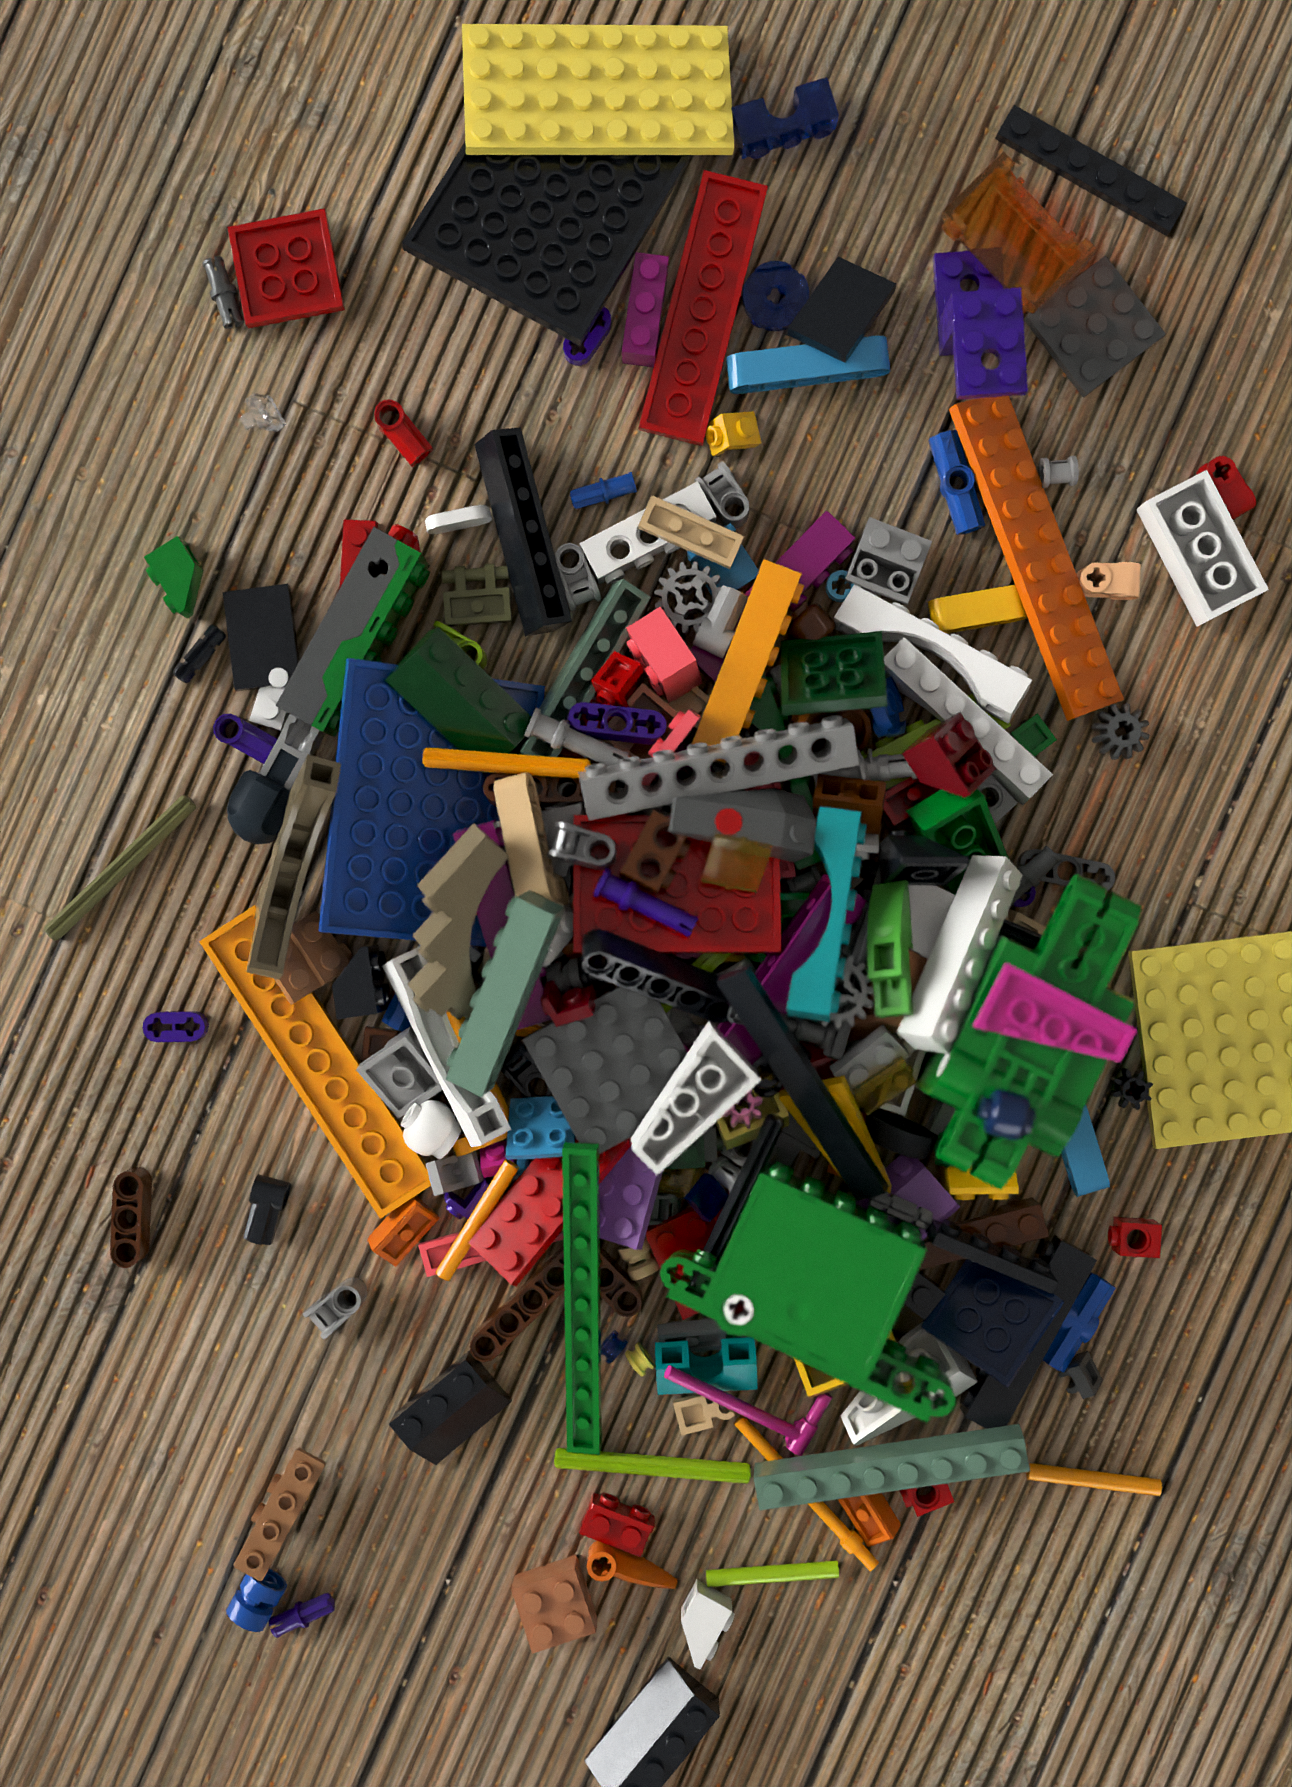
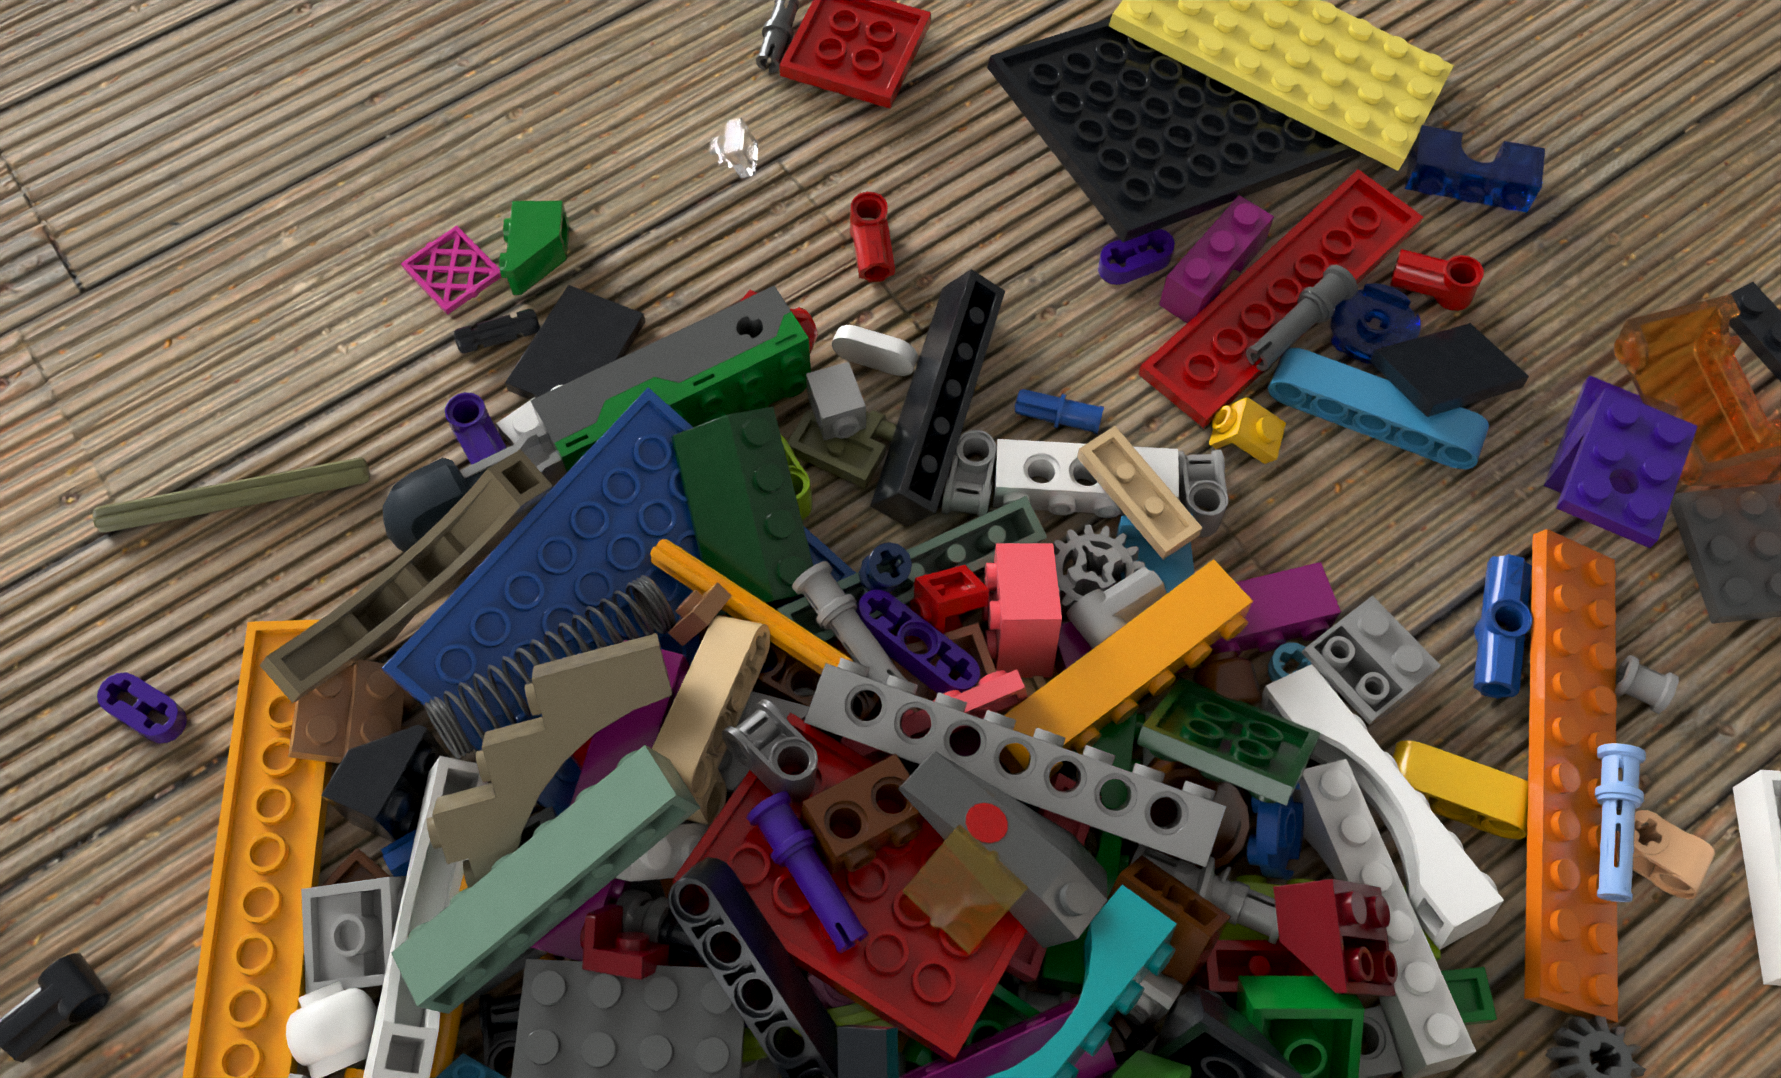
camera: 30 degrees right, 25 degrees down
(158, 632) = (472, 290): none -> dark pink window
(384, 940) = (652, 609): none -> dark grey piece
(462, 580) = (836, 401): none -> light grey brick
(480, 786) = (698, 612): none -> medium nougat plate
(580, 685) = (885, 554): none -> dark blue bush
(731, 314) = (1313, 306): none -> dark grey pin
(794, 232) = (1449, 281): none -> red piece
(1076, 563) = (1616, 882): none -> light blue pin

